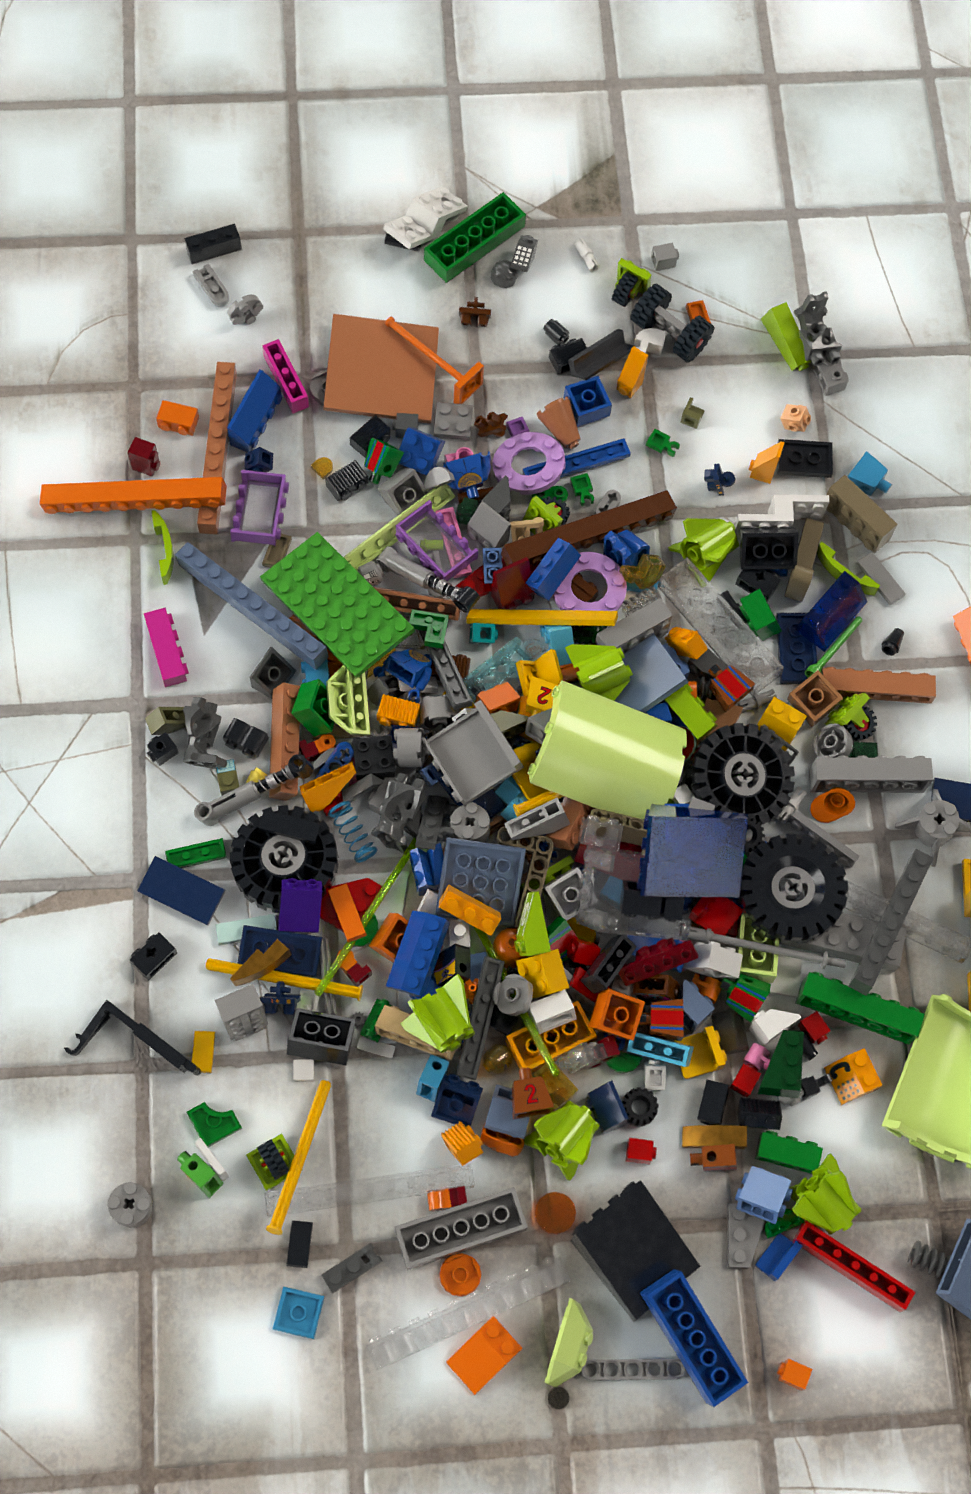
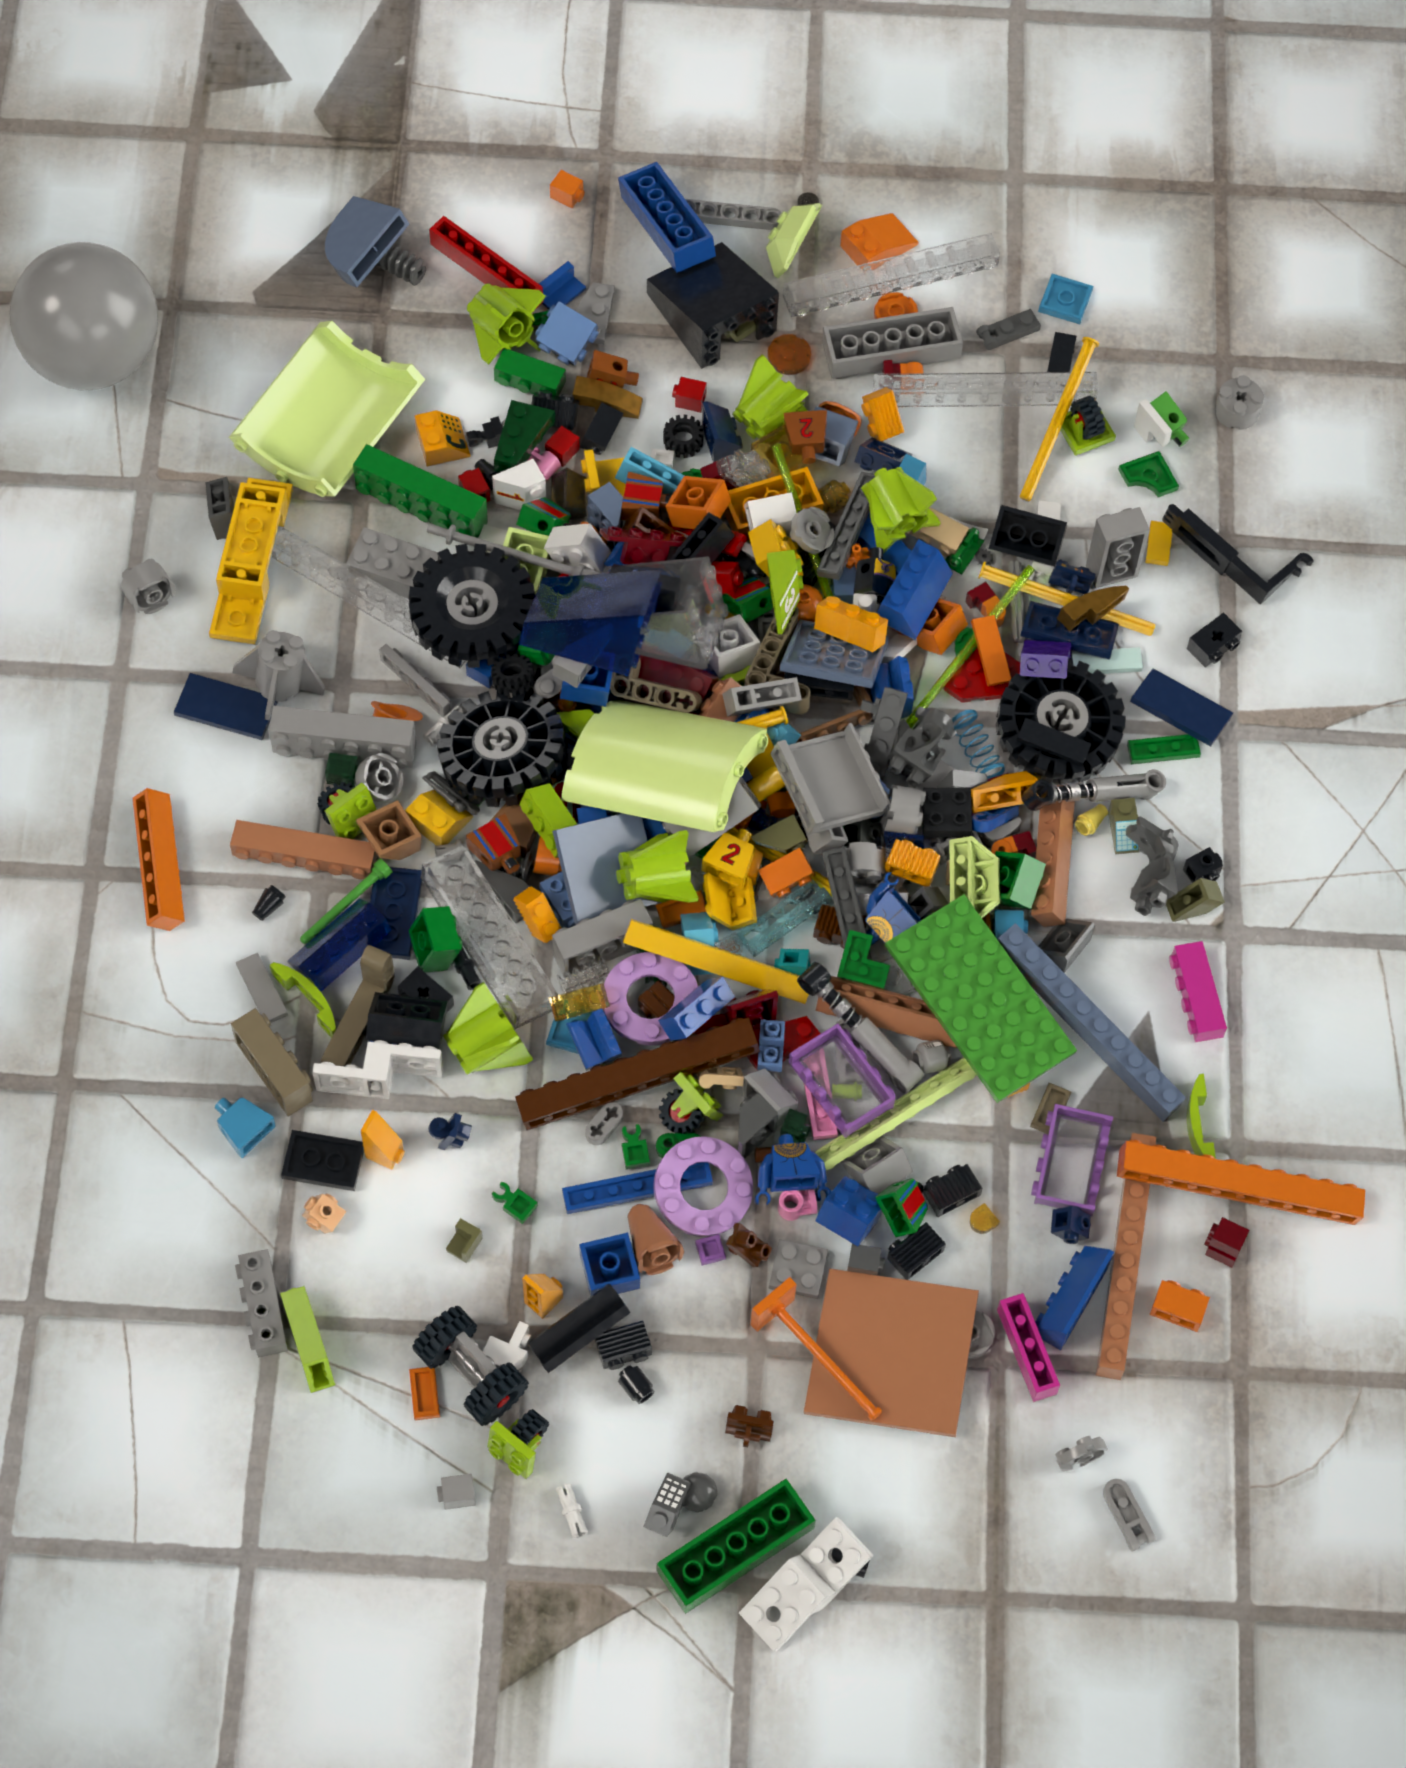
camera: 170 degrees left, 5 degrees down
(213, 243) = (1124, 1578): black brick -> none
(245, 737) = (1100, 869): black brick -> none
(437, 477) = (831, 1163): light grey tile -> none
(469, 816) = (840, 707): light grey brick -> none
(610, 839) = (689, 673): clear brick -> none
(683, 795) = (574, 730): white tile -> none
(814, 343) = (269, 1291): dark grey hips -> none
(890, 922) = (365, 557): dark grey brick -> none

